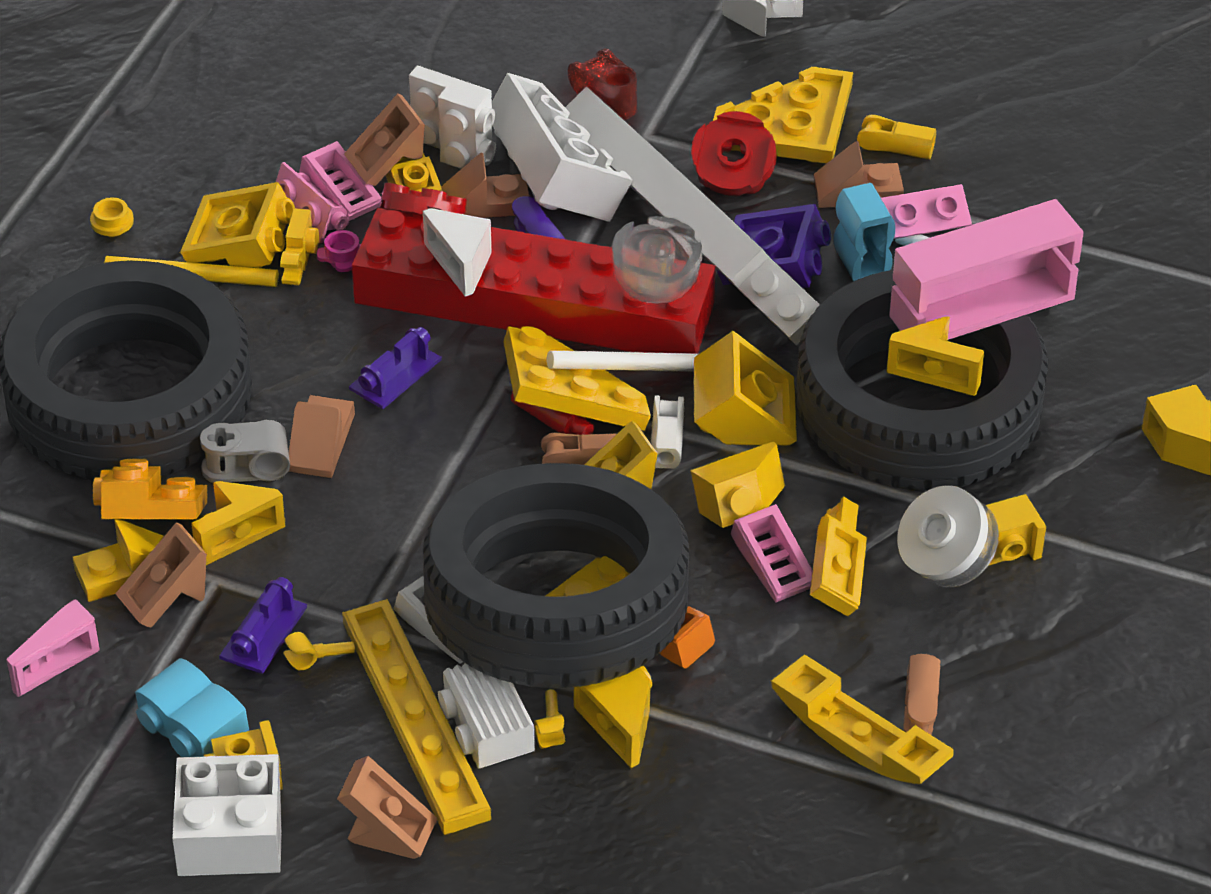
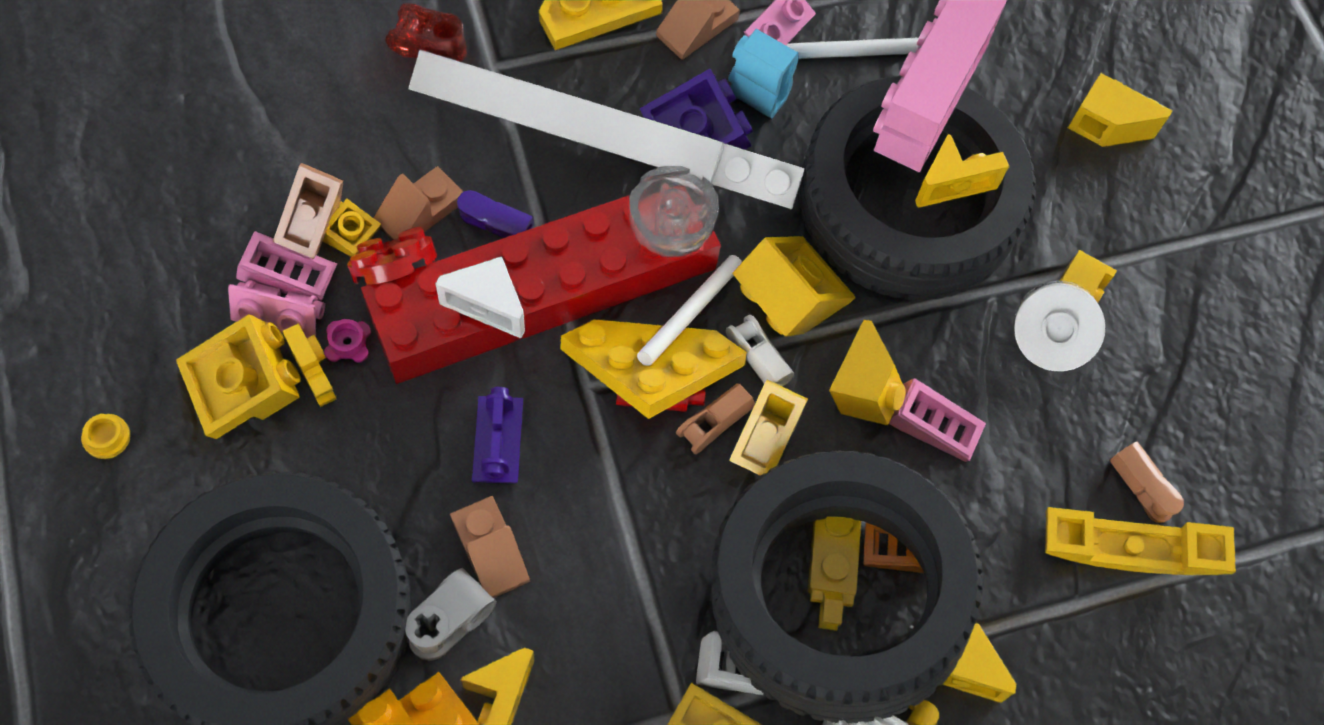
camera: 45 degrees left, 20 degrees up
(219, 273) = (225, 446): yellow bar -> none
(455, 116) = (344, 148): white plate -> none
(555, 151) = (448, 132): white wedge -> none
(745, 174) = (603, 30): red plate -> none
(839, 559) = (988, 392): yellow hinge -> none

